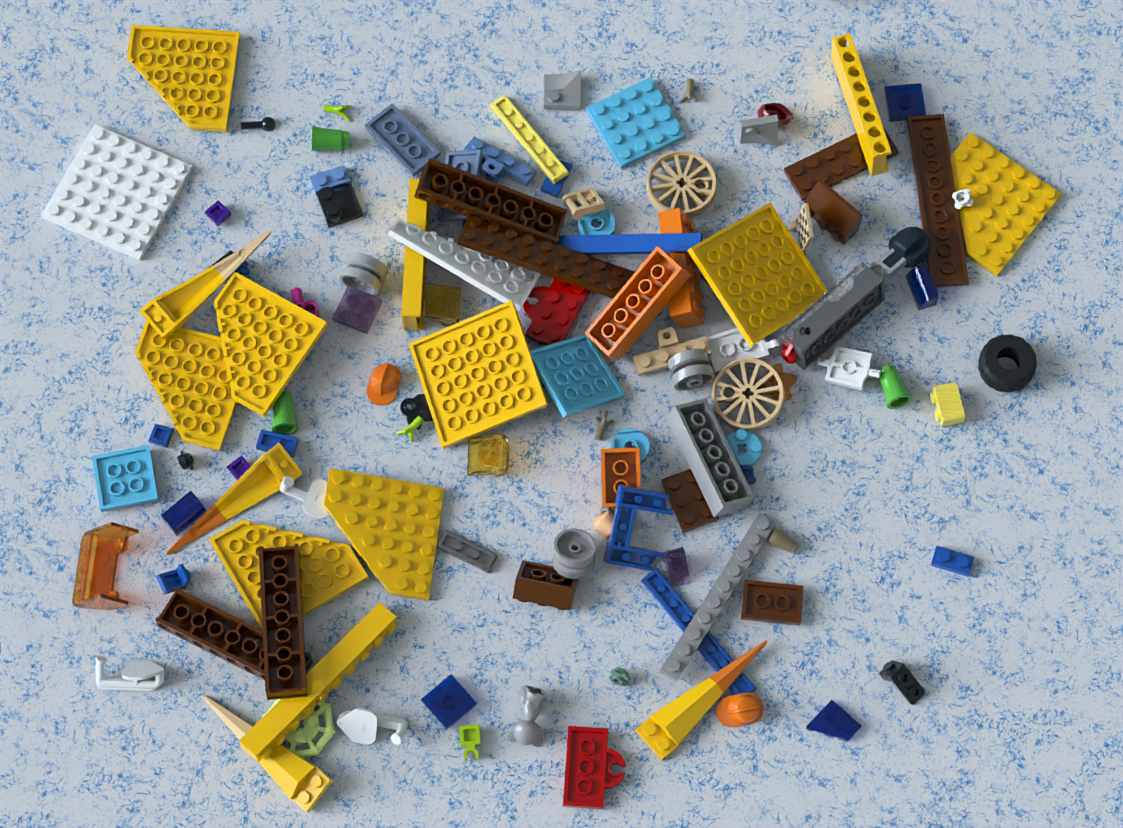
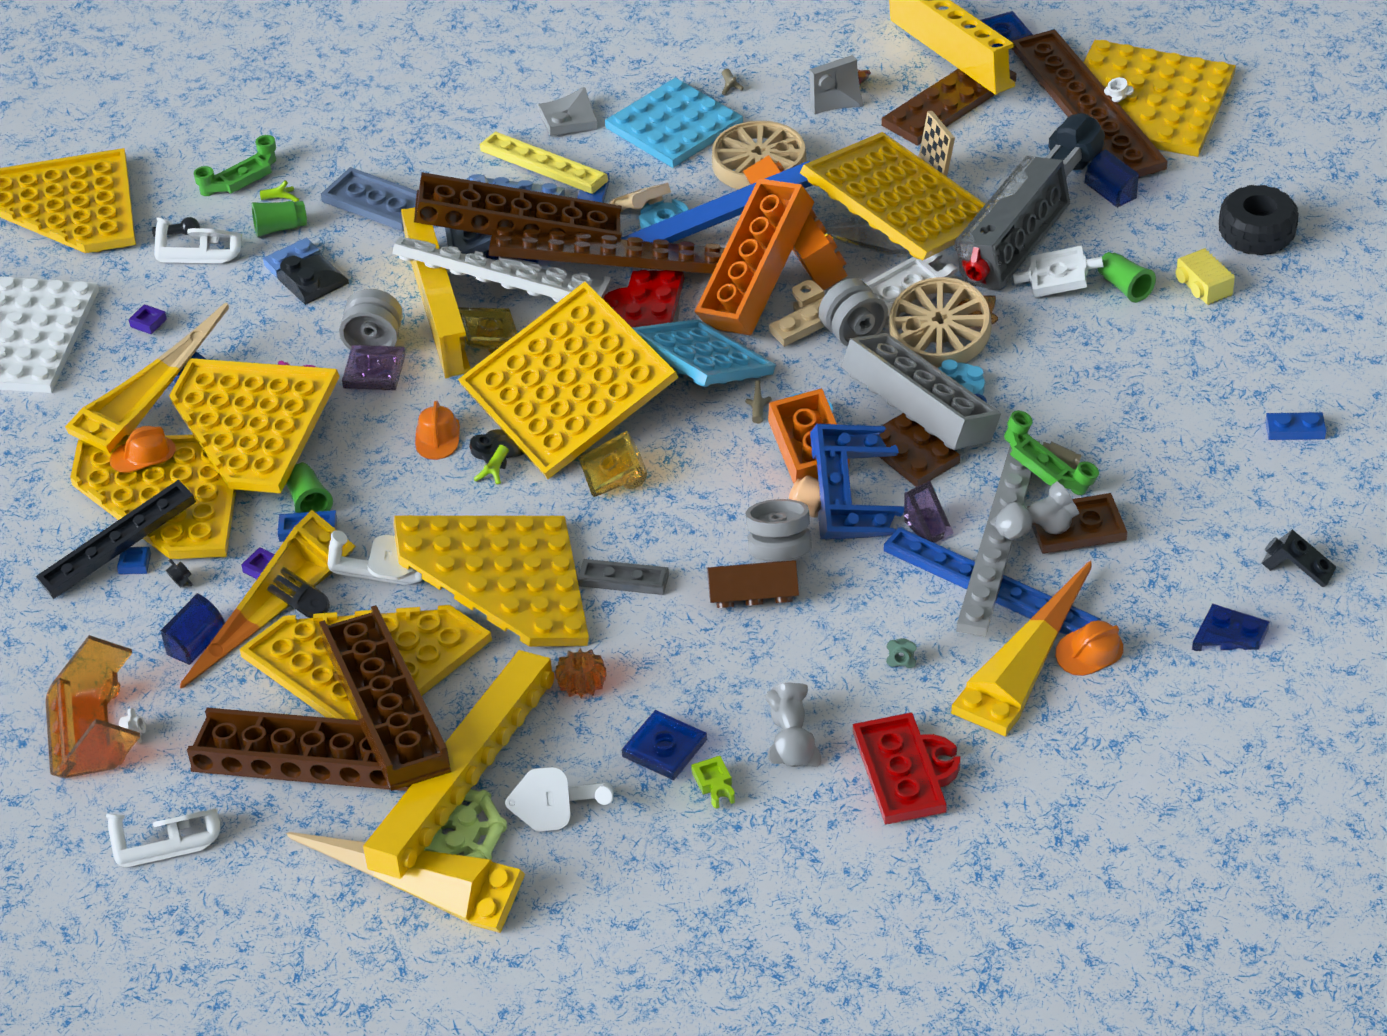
camera: 15 degrees left, 25 degrees down
(125, 478) = (97, 608): medium azure plate -> none
(128, 581) = (133, 723): none -> white plate
(151, 421) = (115, 539): none -> black plate
(174, 579) = (193, 709): blue bracket -> none
(185, 346) = (142, 449): none -> orange piece
(261, 510) = (305, 599): none -> black arm
(274, 147) = (200, 255): none -> white piece
(317, 82) = (240, 174): none -> bright green plate
(408, 634) = (580, 673): none -> clear orange gear
(752, 600) = (1051, 513): none -> light grey animal
(767, 547) = (1044, 462): none -> bright green plate
(833, 212) = (976, 132): reddish brown slope -> none

